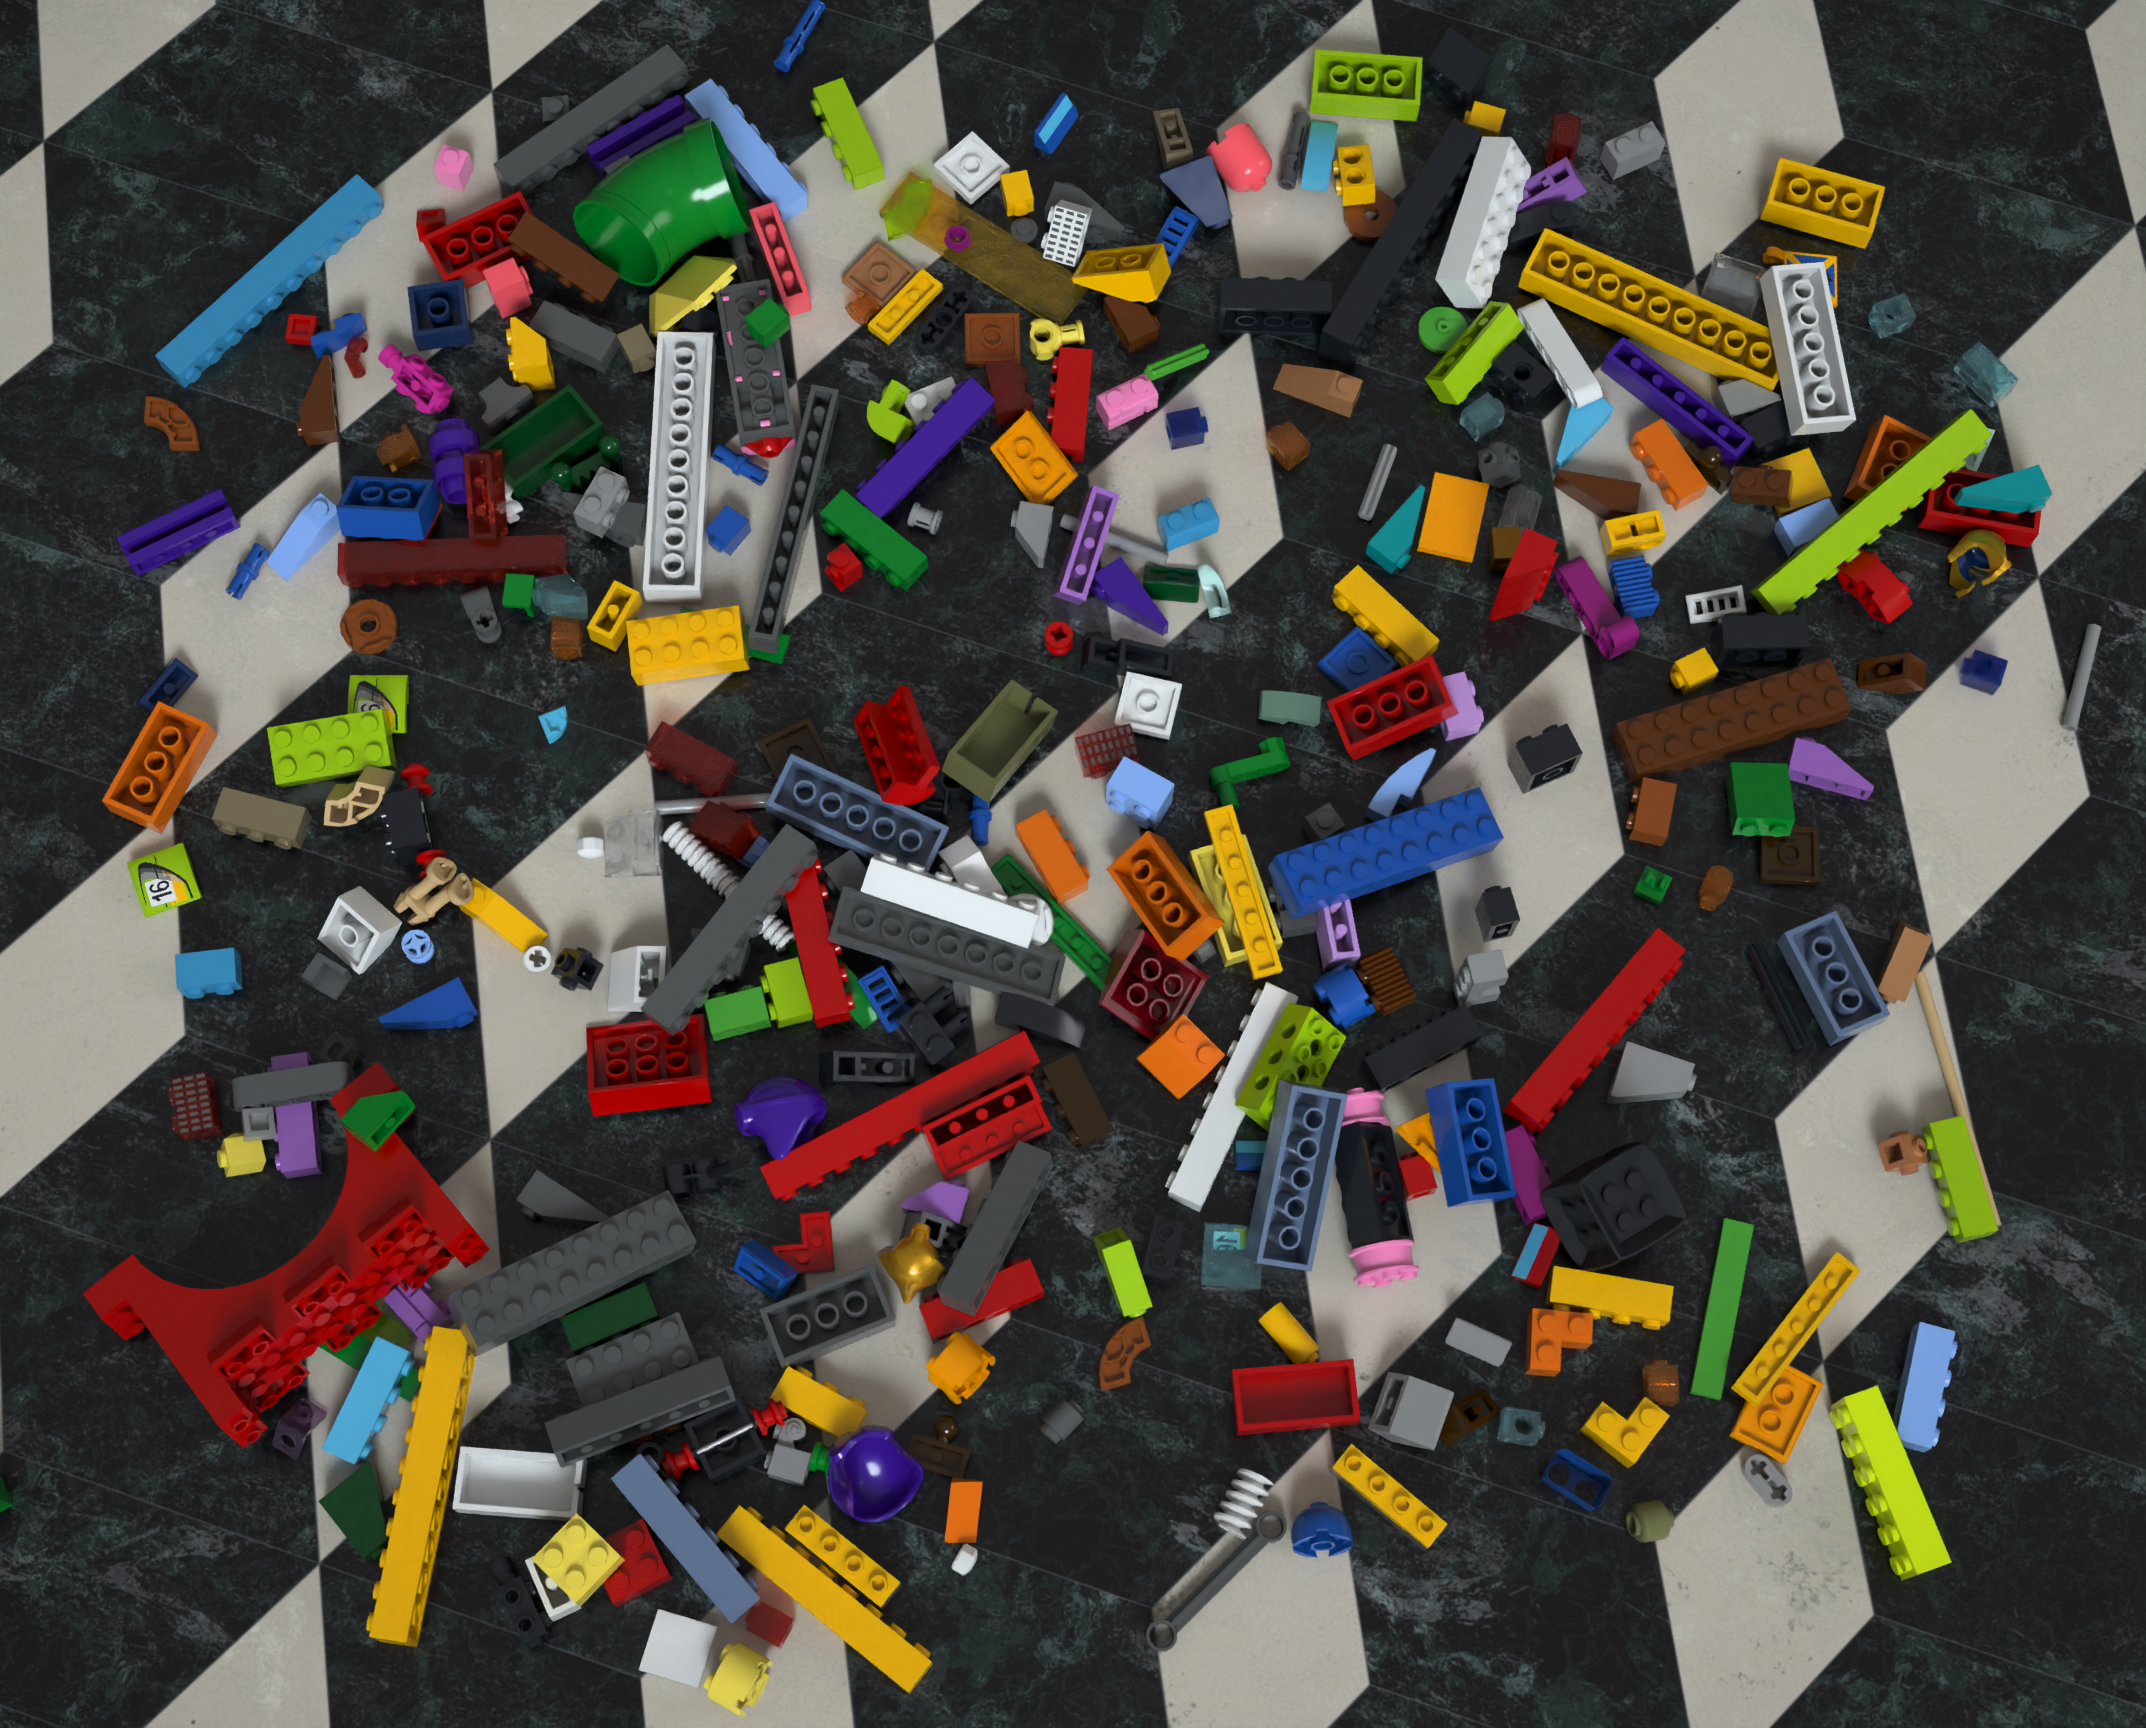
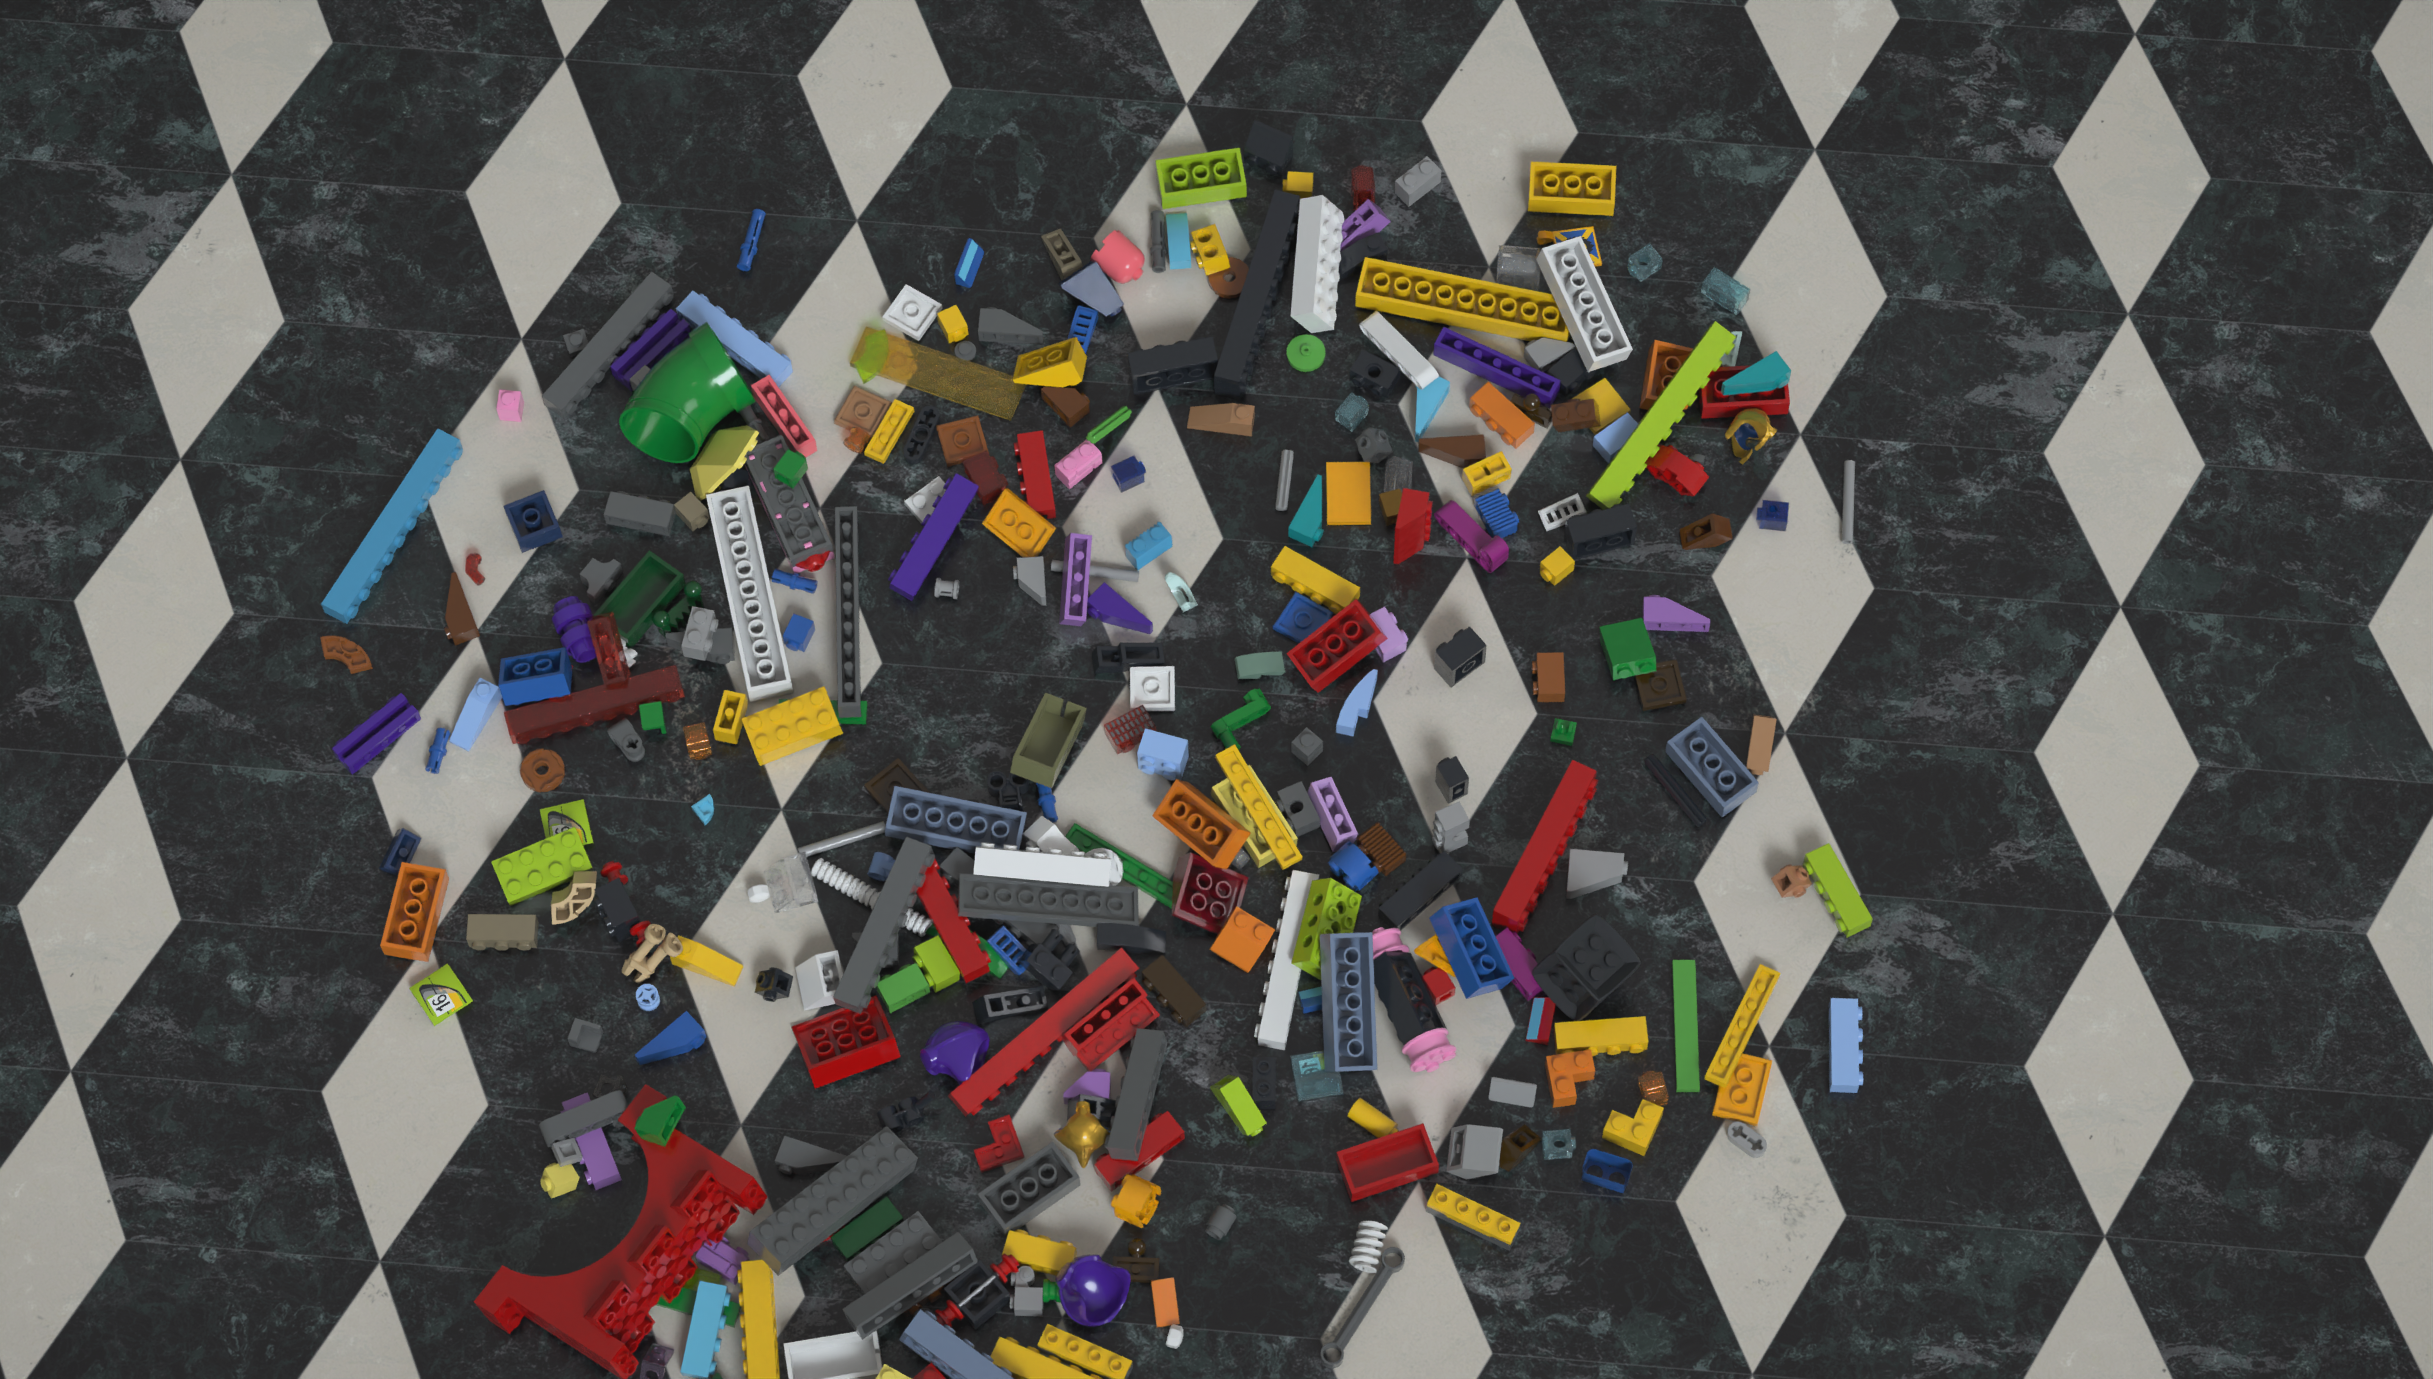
camera: 10 degrees left, 5 degrees down
(194, 1106) = (513, 1153): clear red brick -> none
(208, 972) = (494, 1054): dark azure brick -> none
(301, 328) = (427, 557): red plate -> none
(347, 327) = (462, 548): blue slope -> none
(359, 929) = (599, 995): white slope -> none
(398, 449) = (528, 631): clear orange brick -> none
(417, 380) = (528, 575): dark pink brick -> none
(429, 221) = (504, 454): red slope -> none
(476, 241) = (552, 457): red brick -> none
(508, 287) = (580, 488): coral brick -> none
(529, 357) = (611, 537): yellow slope -> none
(530, 964) = (736, 990): white bush -> none
(560, 597) = (686, 712): clear light blue slope -> none
(562, 257) = (616, 455): reddish brown brick -> none
(690, 760) = (817, 811): clear red brick -> none
(725, 829) = (857, 855): clear red brick -> none
(764, 1269) = (972, 1168): blue slope -> none
(843, 567) = (894, 640): red brick -> none
(848, 134) = (810, 308): lime brick -> none
(873, 540) = (912, 614): green brick -> none
(885, 416) = (896, 518): lime brick -> none
(898, 748) = (973, 763): red brick -> none
(957, 232) = (916, 364): magenta plate -> none
(1052, 856) = (1109, 817): orange brick -> none
(1056, 336) = (1011, 426): light yellow connector -> none
(1059, 644) = (1073, 659): red wheel -> none
(1066, 232) = (1000, 346): white brick -> none
(1121, 1352) = (1251, 1164): dark orange tile -> none
(1171, 584) = (1147, 593): dark green slope -> none
(1287, 445) = (1209, 468): clear orange brick -> none
(1320, 1530) = (1430, 1251): blue cylinder -> none
(1384, 853) = (1357, 754): blue brick -> none
(1474, 353) = (1334, 365): lime brick -> none
(1649, 1521) = (1667, 1187): olive head -> none
(1715, 887) = (1610, 722): clear orange arm -> none
(1731, 721) = (1593, 596): reddish brown brick -> none
(1889, 1483) = (1833, 1117): neon yellow brick -> none
(1950, 1075) = (1802, 795): tan piece -> none

